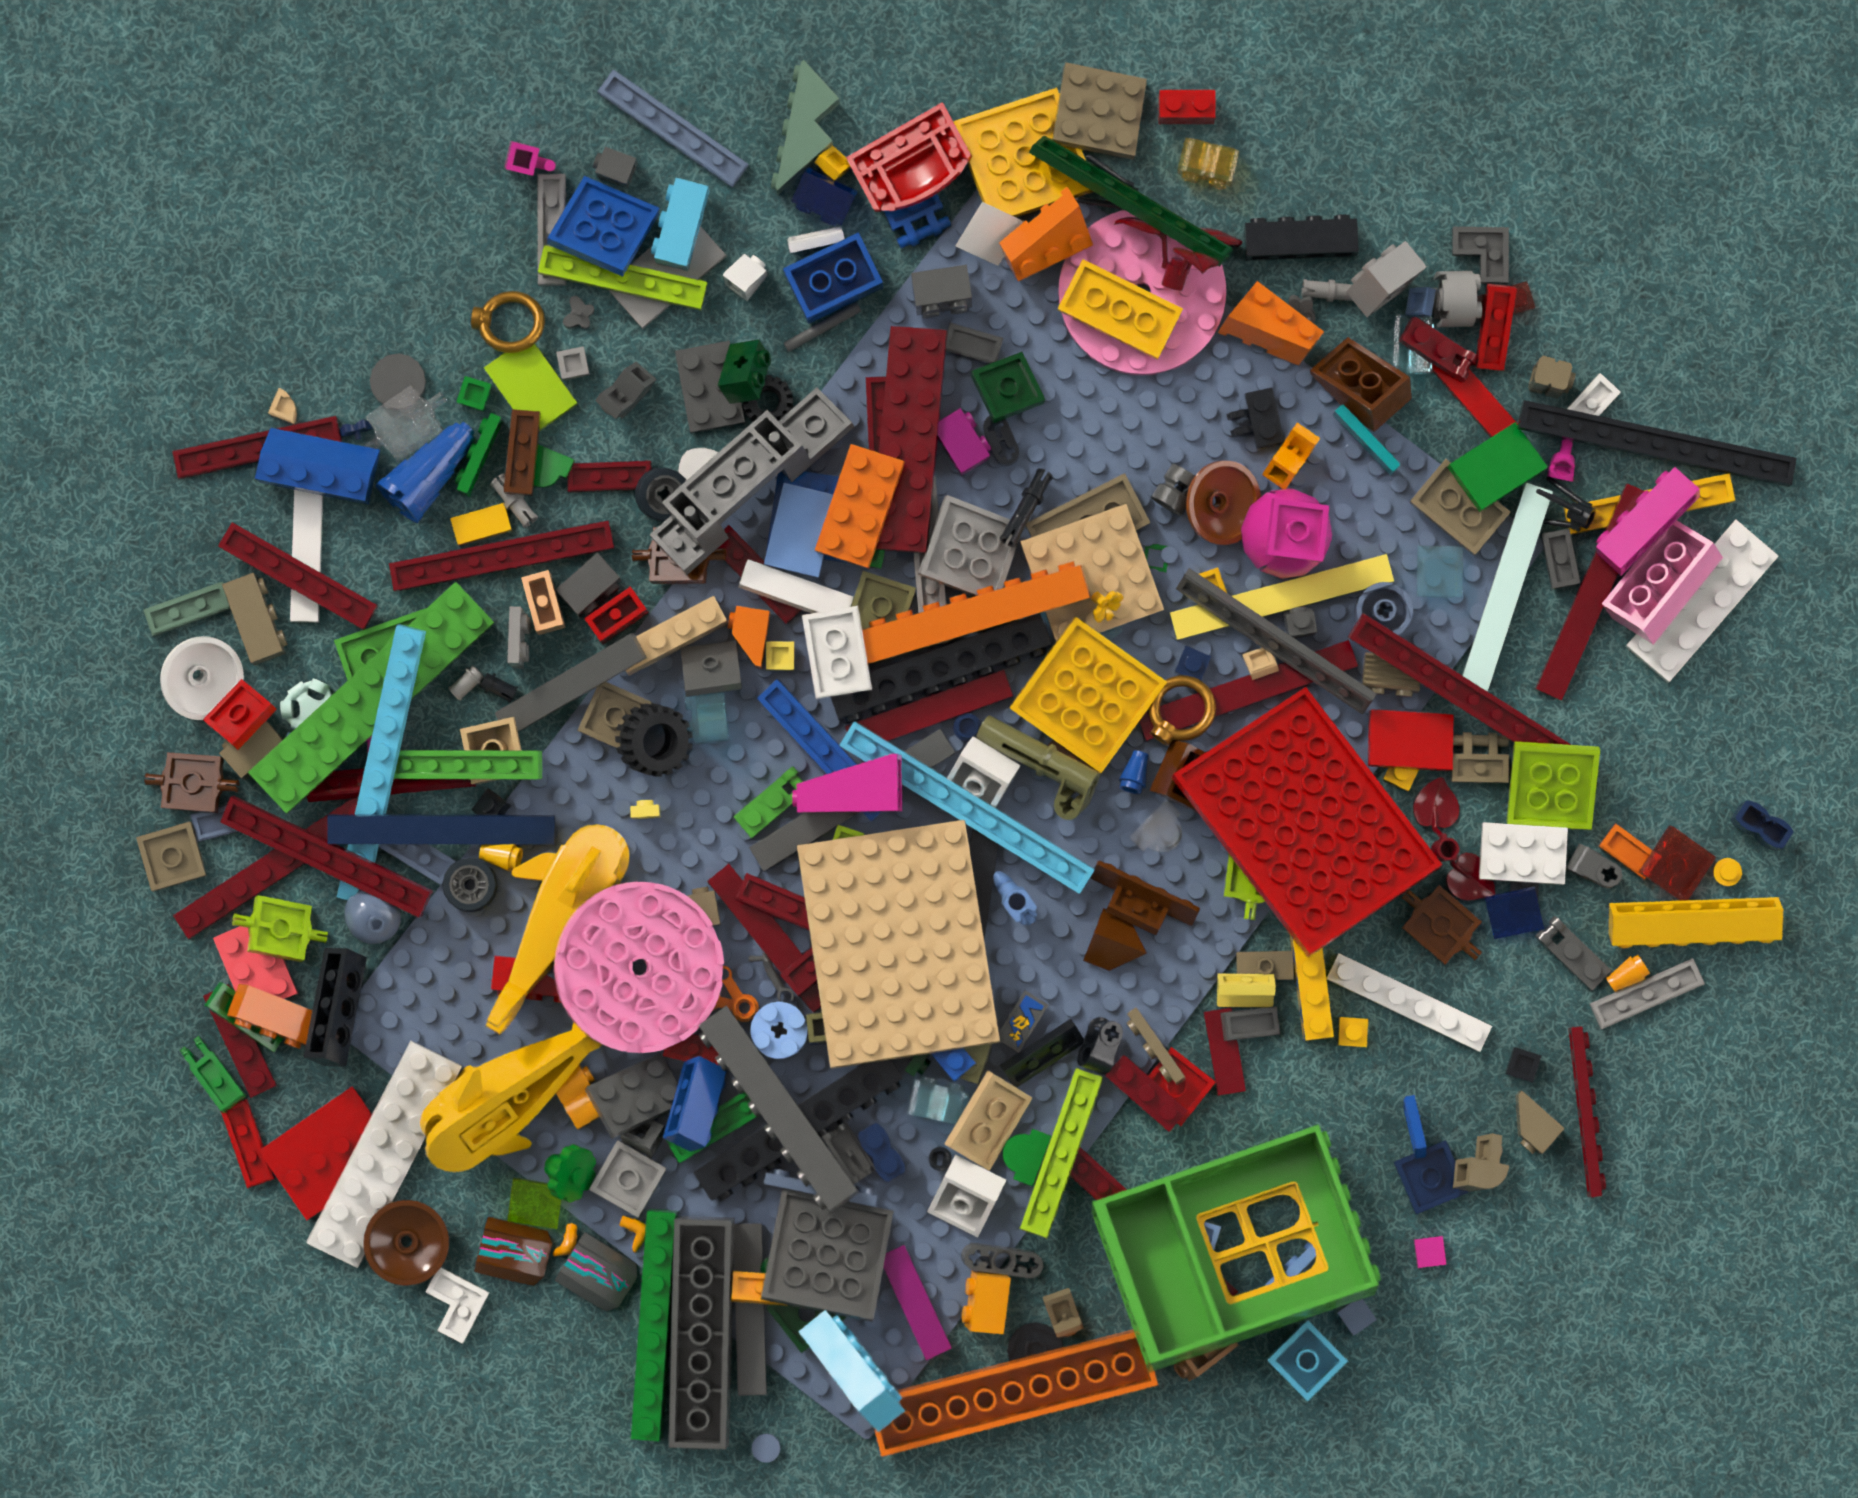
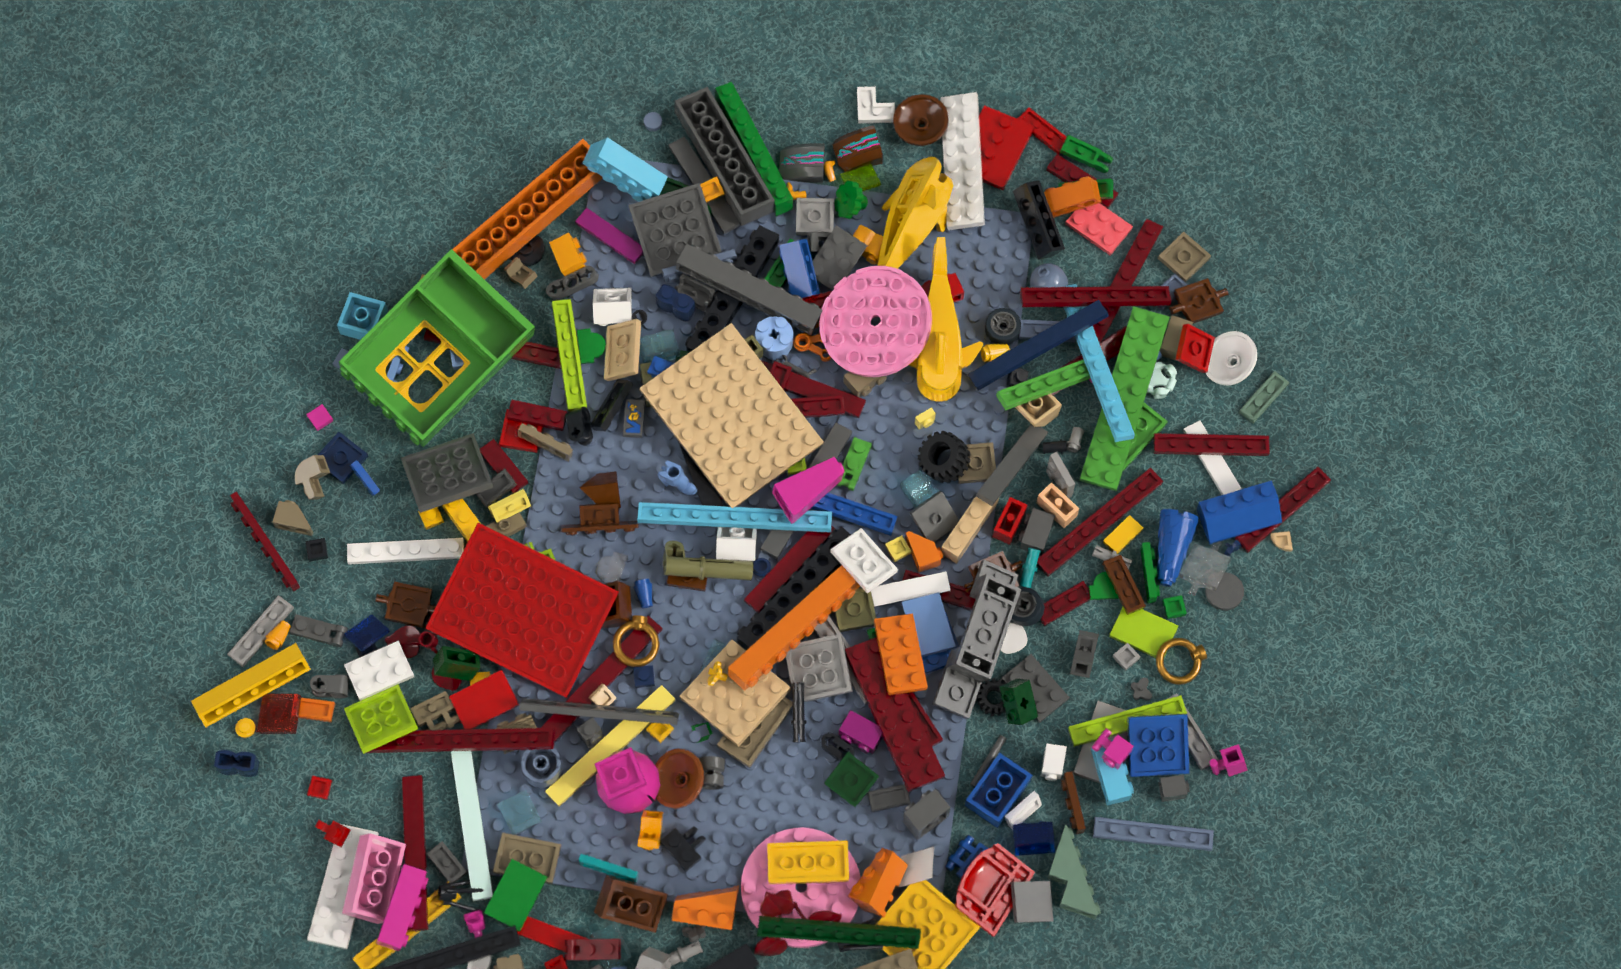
camera: 145 degrees right, 15 degrees down
(255, 618) = (1221, 409): dark tan brick -> none
(279, 928) = (1097, 247): lime plate -> none
(627, 541) = (1029, 567): none -> teal pin
(664, 236) = (1116, 750): none -> dark pink brick
(750, 215) = (1072, 803): none -> reddish brown plate
(833, 163) = (1041, 864): yellow plate -> none
(871, 122) = (1032, 901): none -> tile
(1088, 694) = (698, 620): yellow plate -> none
(1305, 1072) = (446, 472): none -> dark grey plate
(1424, 801) = (456, 663): none -> dark green brick
(1670, 743) = (319, 787): none -> red tile
(1679, 670) = (335, 832): none -> red plate

